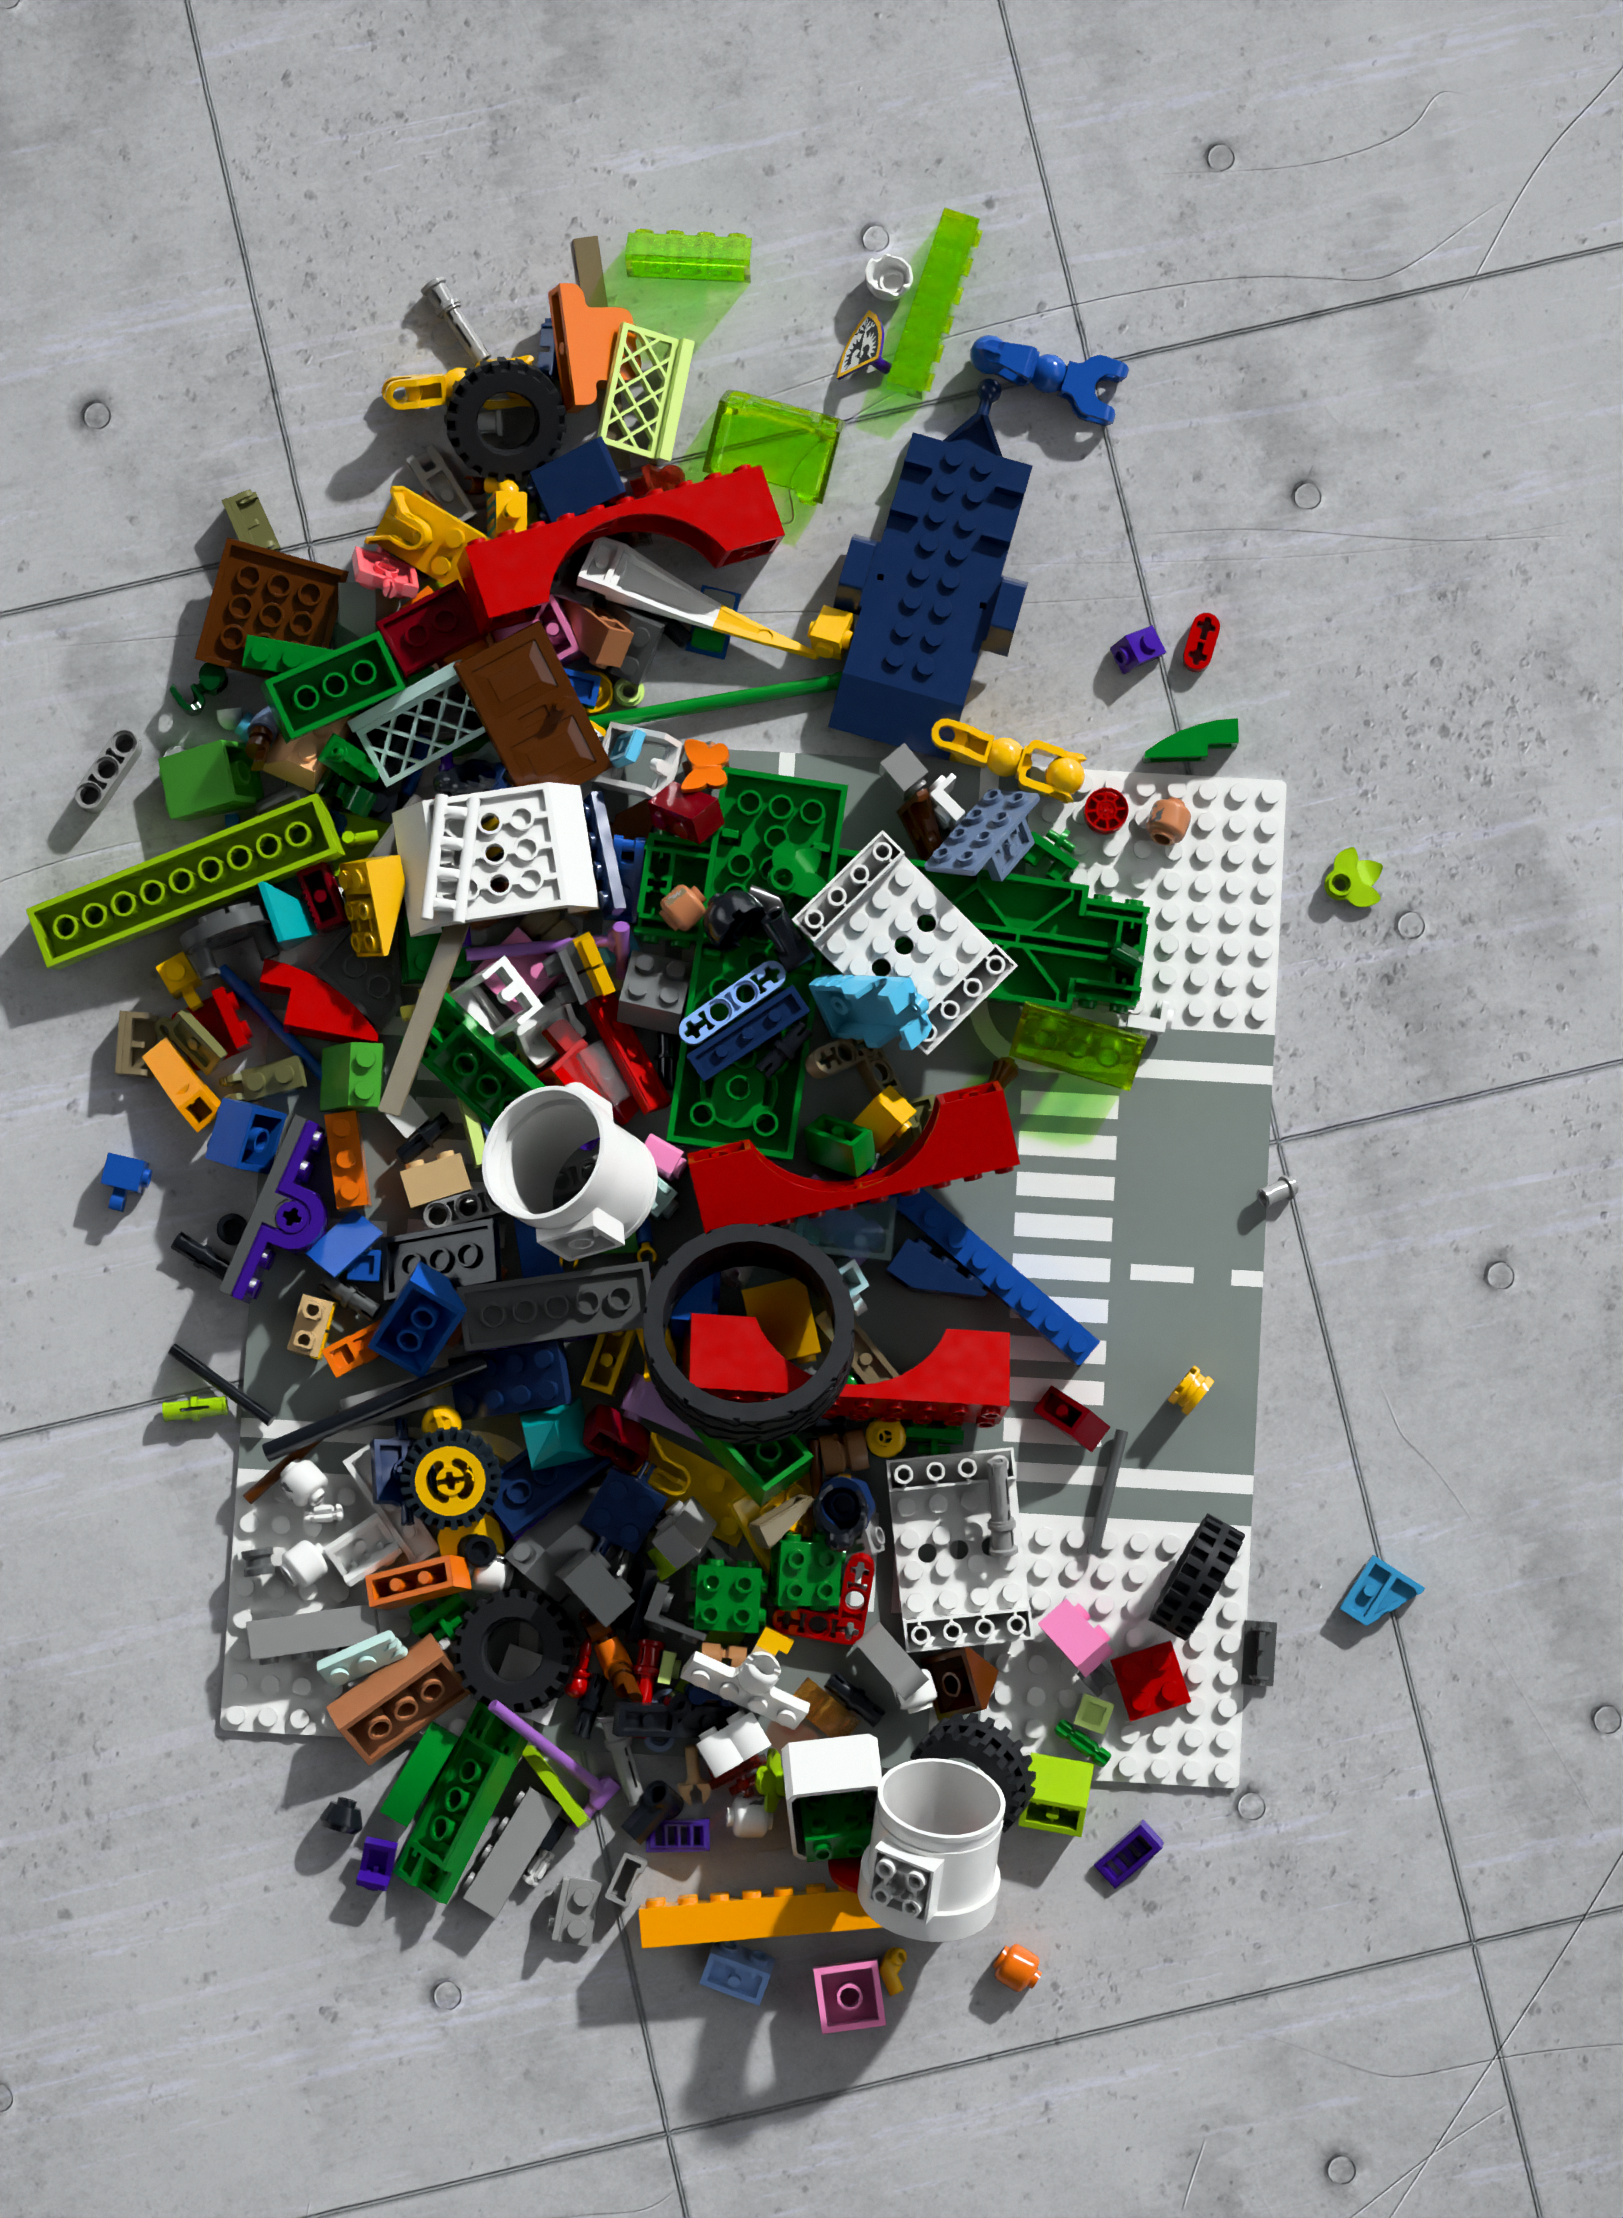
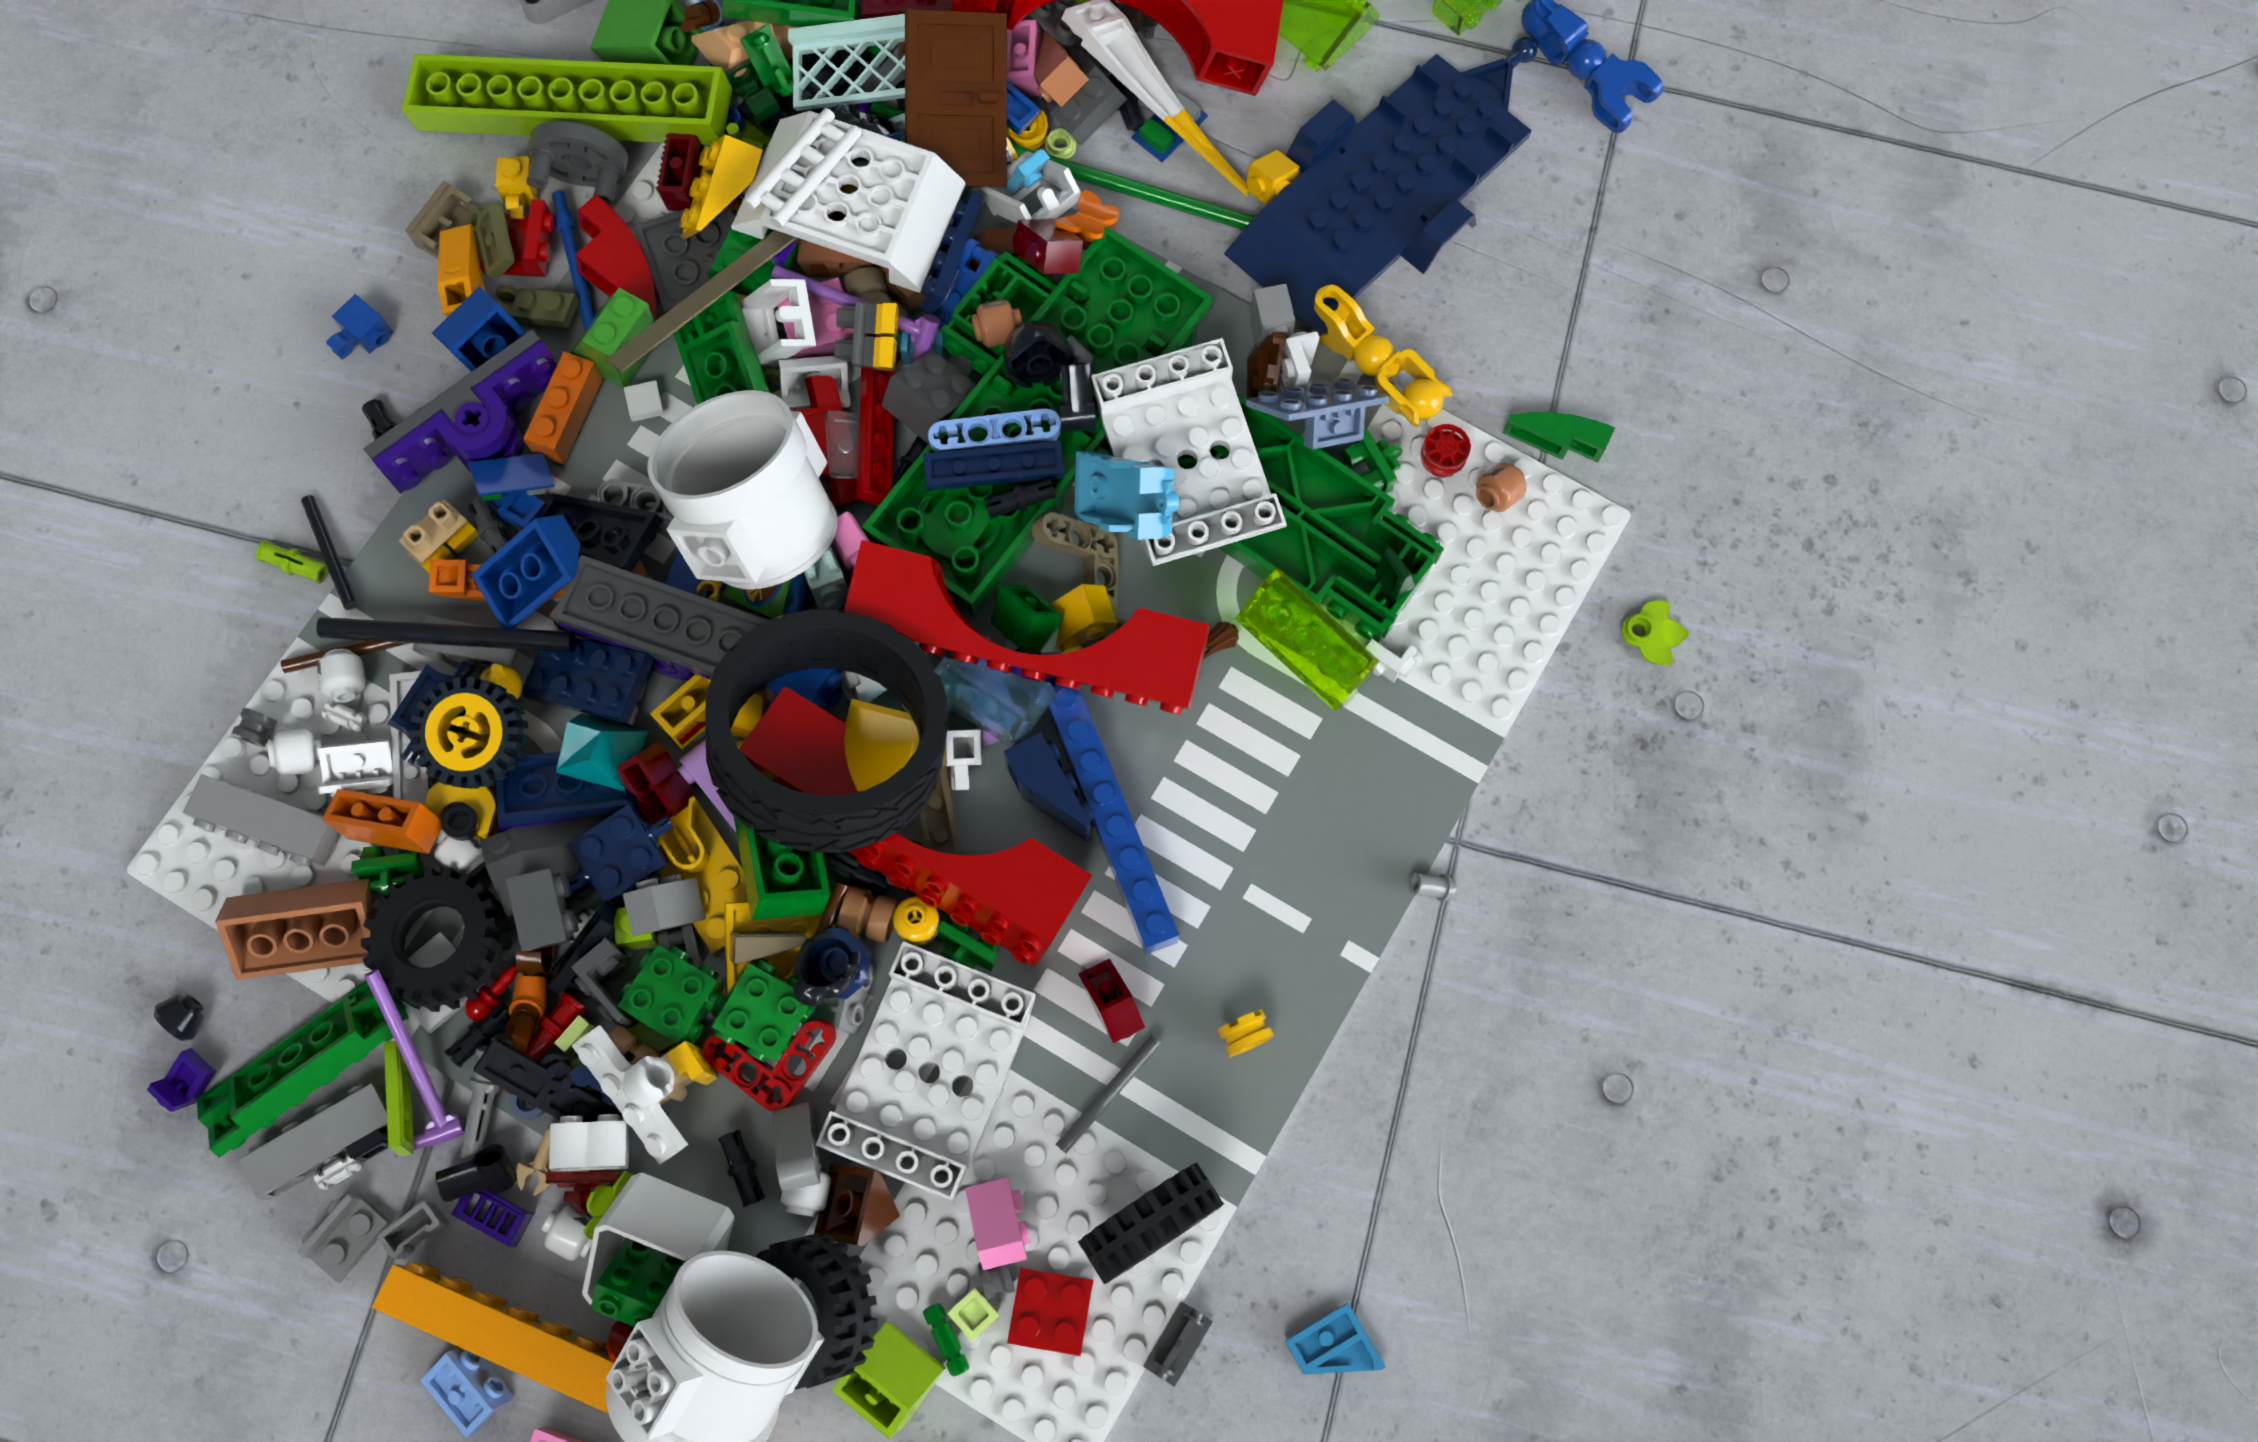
camera: 25 degrees right, 10 degrees down
(288, 916) = (634, 168): teal slope -> none
(361, 1659) = (287, 868): light aqua hinge -> none
(419, 1774) = (276, 1014): green slope -> none
(424, 1138) = (643, 426): black axle -> none
(435, 1179) = (622, 460): tan brick -> none
(798, 867) = (1125, 342): green plate -> none
(826, 1711) = (705, 1164): clear orange slope -> none
(1001, 1521) = (983, 1063): light grey pin -> none
(1137, 649) = (1548, 327): dark purple bracket -> none
(1208, 644) = (1607, 348): red beam -> none

